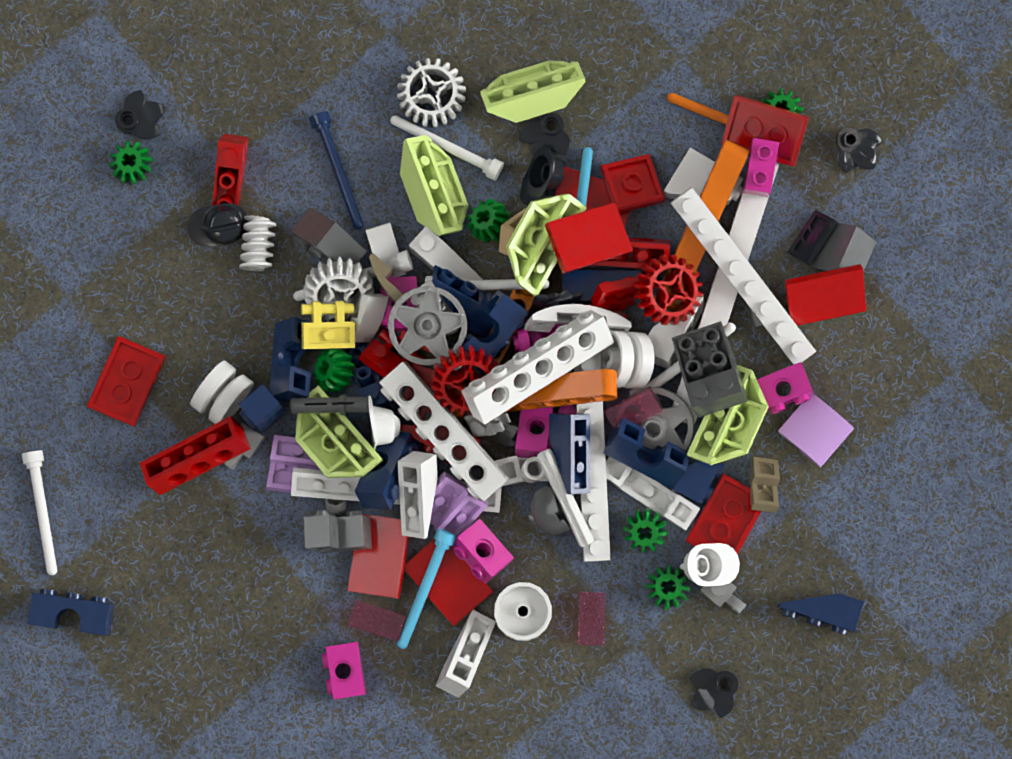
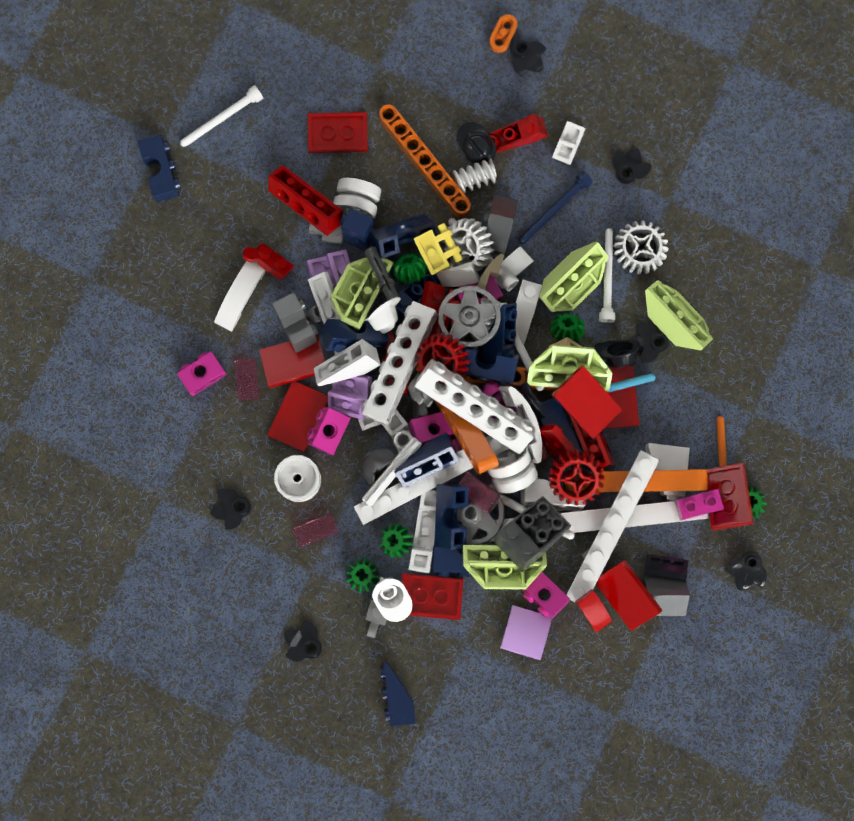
camera: 60 degrees right, 0 degrees up
(99, 132) = (502, 34): none -> orange plate
(136, 154) = (485, 60): green gear -> none
(199, 292) = (423, 152): none -> orange beam
(246, 531) = (268, 260): none -> red hinge
(267, 117) = (568, 143): none -> white slope
(267, 580) = (239, 295): none -> white slope
(326, 56) = (632, 164): none -> black plate
(444, 540) = (323, 399): medium azure piece -> none
(466, 654) = (250, 452): white slope -> none
(520, 711) = (228, 510): none -> black plate
(632, 183) = (643, 419): red tile -> none
(764, 484) = (468, 612): dark tan slope -> none
(825, 341) = (593, 610): none -> slope

